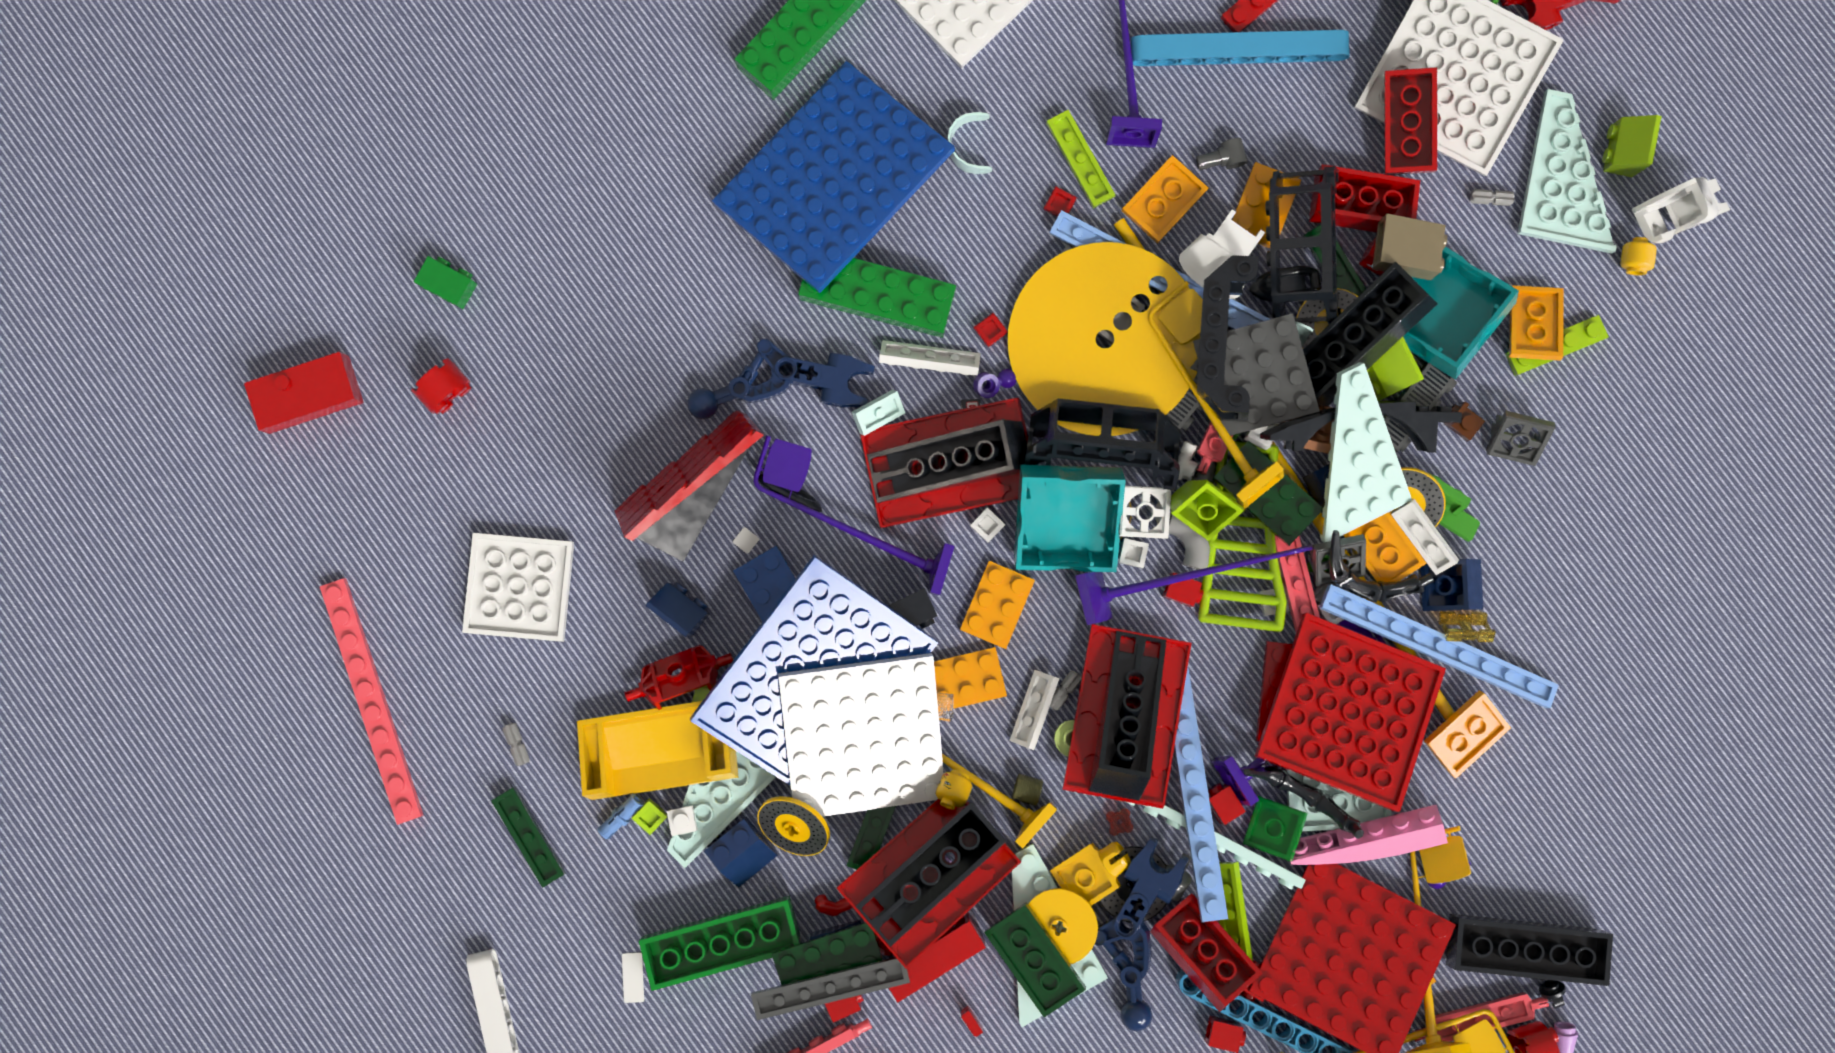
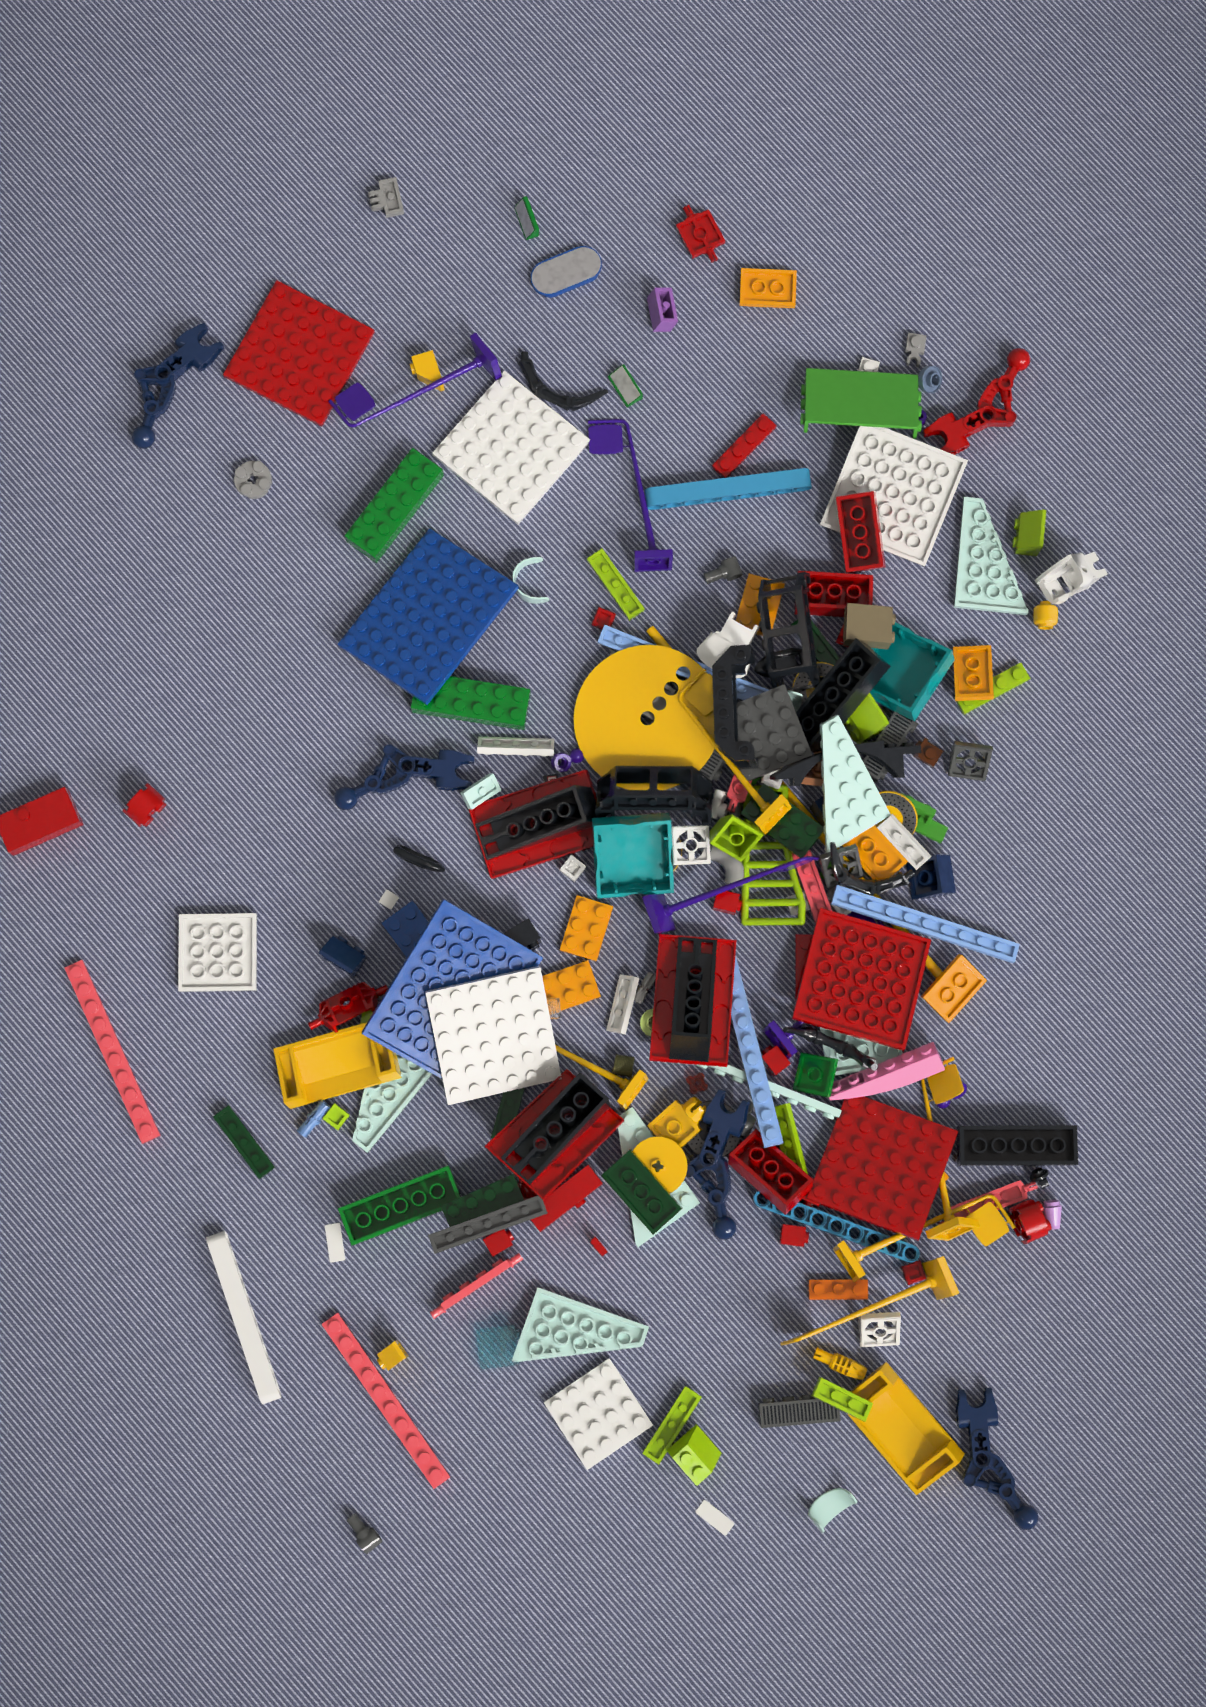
camera: 10 degrees left, 5 degrees down
(445, 282) = (139, 726): green brick -> none
(514, 739) = (225, 1069): light grey piece -> none
(682, 820) = (361, 1115): white plate -> none
(684, 494) = (339, 867): red piece -> none
(741, 852) = (409, 1136): dark blue slope -> none
(788, 468) = (416, 839): dark purple piece -> none
(793, 826) = (460, 1112): piece -> none
(829, 907) = (483, 1172): red arm -> none
(954, 789) = (566, 1068): yellow head -> none
(990, 330) = (560, 720): red tile -> none
(1133, 553) = (686, 878): white plate -> none
(1164, 199) = (682, 608): light orange plate -> none
(1466, 631) = (944, 905): clear yellow piece -> none
(1483, 196) = (936, 581): light grey piece -> none

